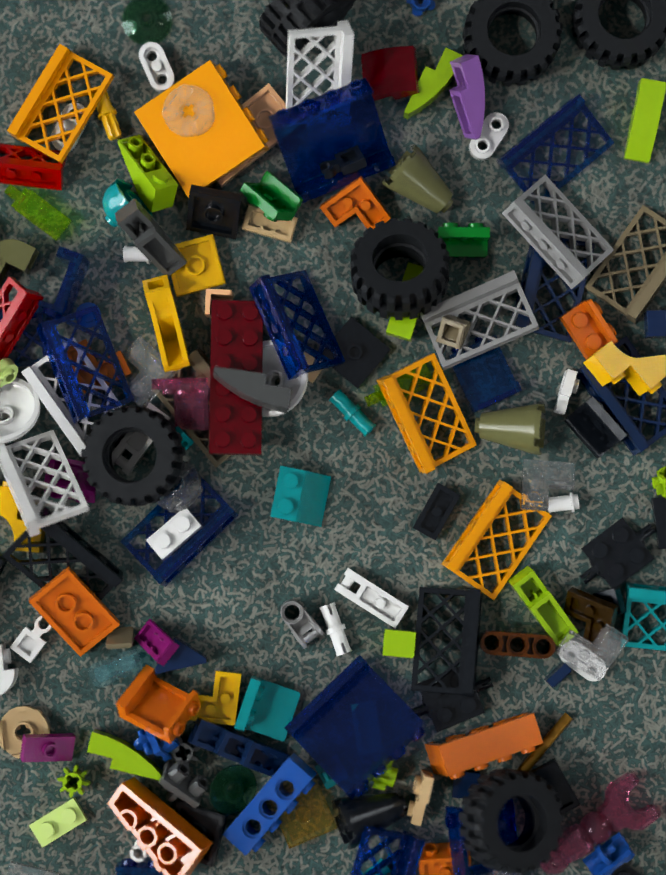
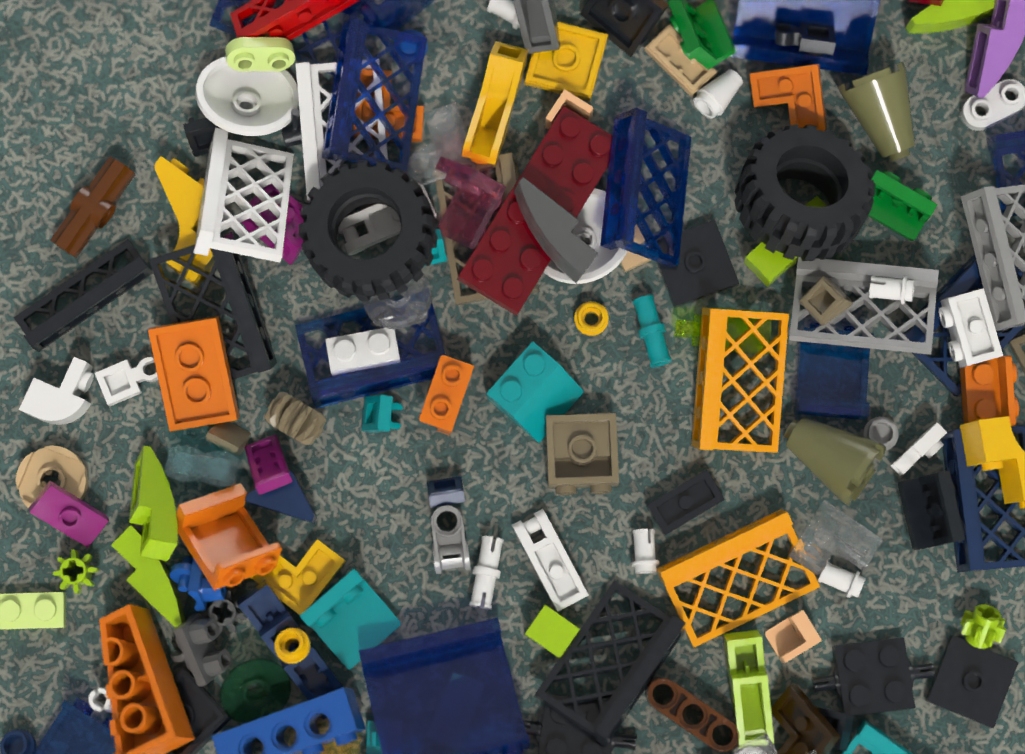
camera: 30 degrees right, 5 degrees down
(45, 417) = (292, 134): none -> black hand
(99, 712) = (153, 507): none -> lime slope
(156, 602) = (295, 418): none -> dark tan gear
(207, 567) = (378, 414): none -> teal tile
(233, 748) = (283, 641): none -> yellow plate
(244, 531) = (446, 394): none -> orange bracket
(280, 593) = (445, 491): none -> dark blue tile
(300, 426) = (595, 308): none -> yellow plate
(306, 233) = (717, 94): none -> white cone
(352, 518) = (582, 453): none -> dark tan plate
(428, 557) = (644, 551): none -> white pin
(491, 300) = (892, 288): none -> white pin
(535, 393) = (881, 430): none -> light grey plate
(552, 558) = (792, 636): none -> light nougat panel
(555, 296) = (970, 328): none -> white bracket

